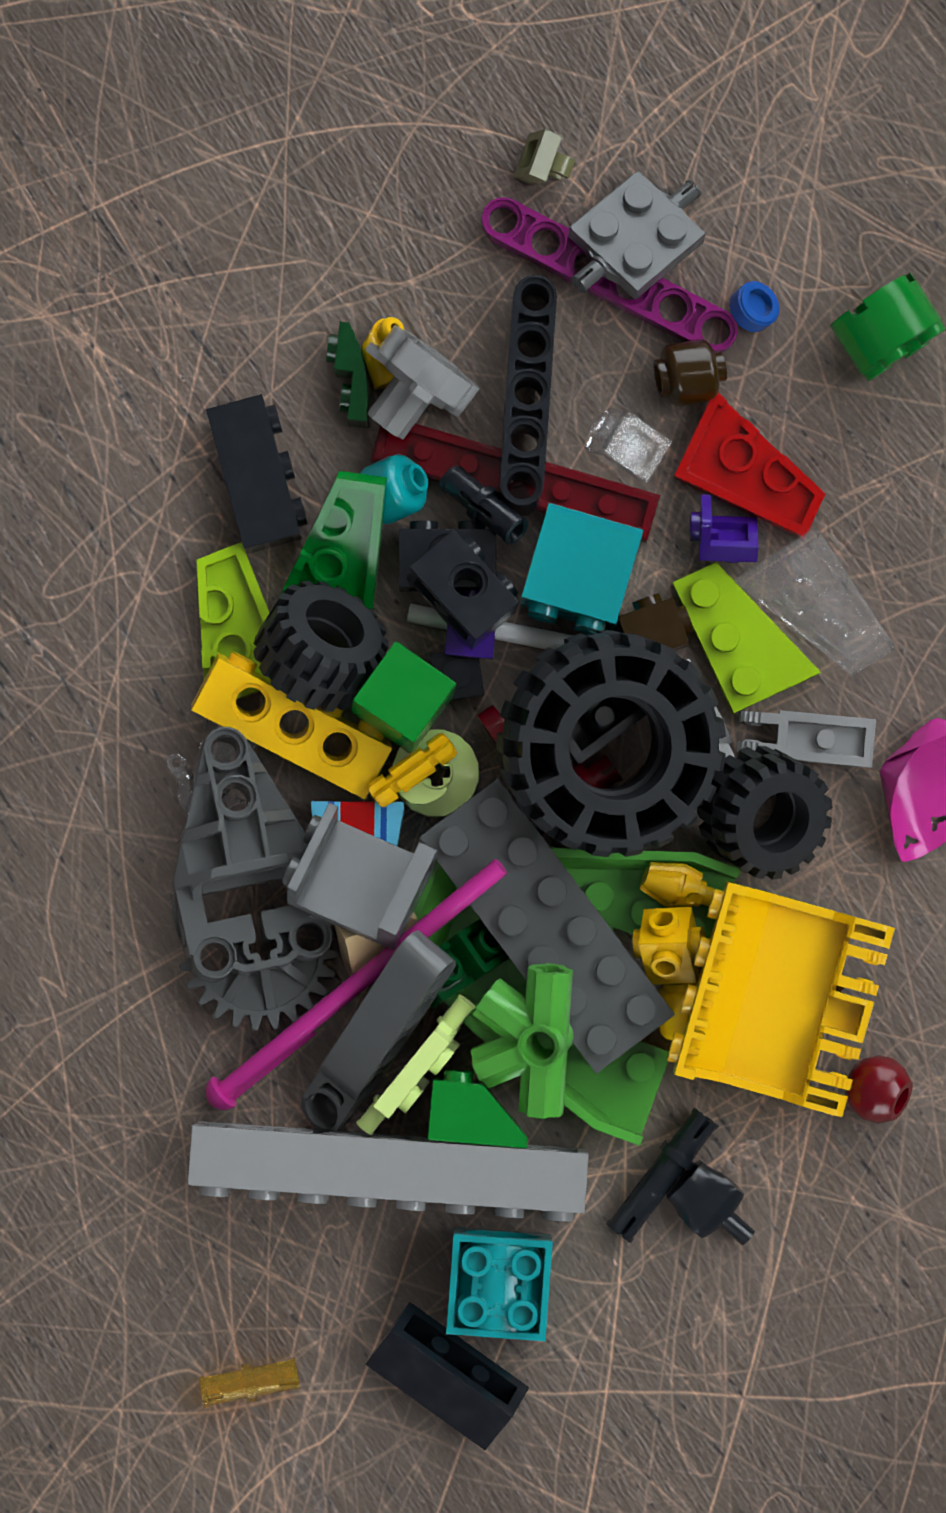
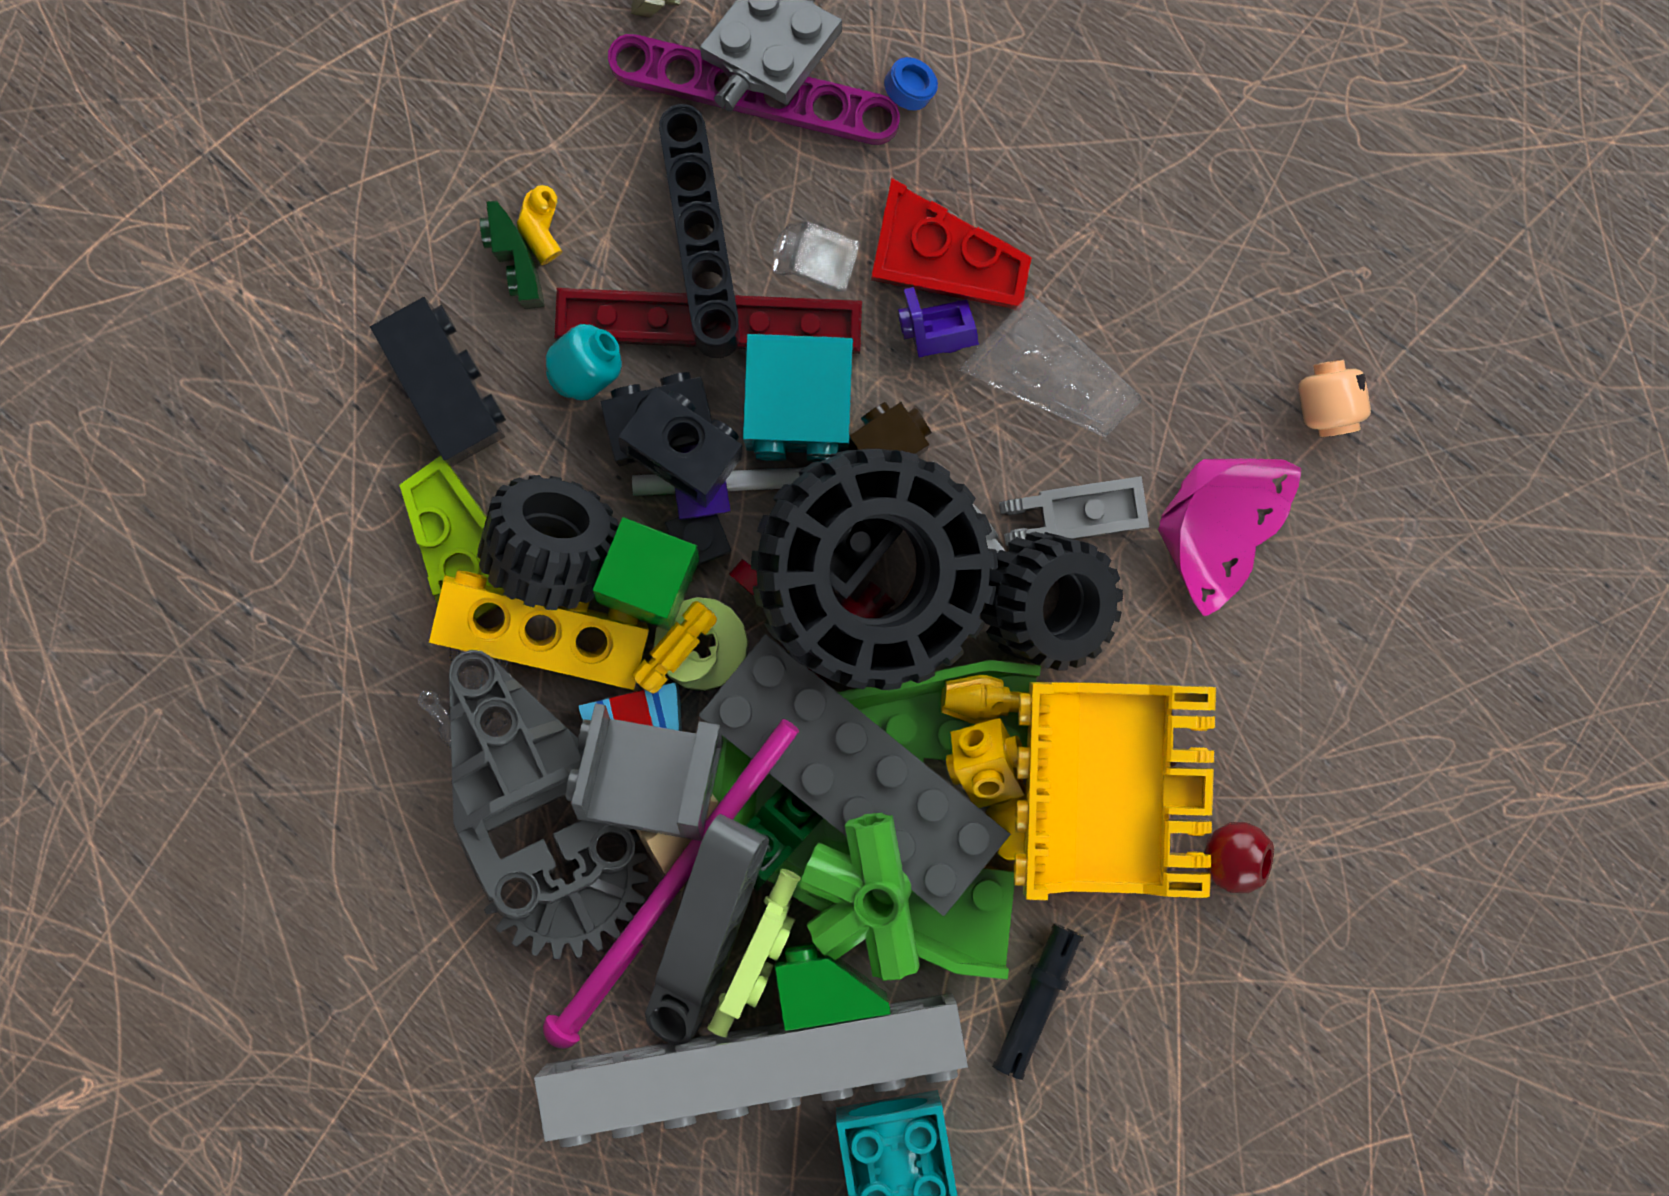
camera: 15 degrees left, 0 degrees up
(345, 538) = (548, 423): green wing -> none
(419, 379) = (583, 242): light grey piece -> none
(484, 504) = (682, 354): black pin -> none
(689, 372) = (861, 167): dark brown head -> none
(709, 1201) = (1092, 1016): black piece -> none
(739, 640) = (980, 430): lime wing -> none
(888, 326) = (1053, 68): green brick -> none

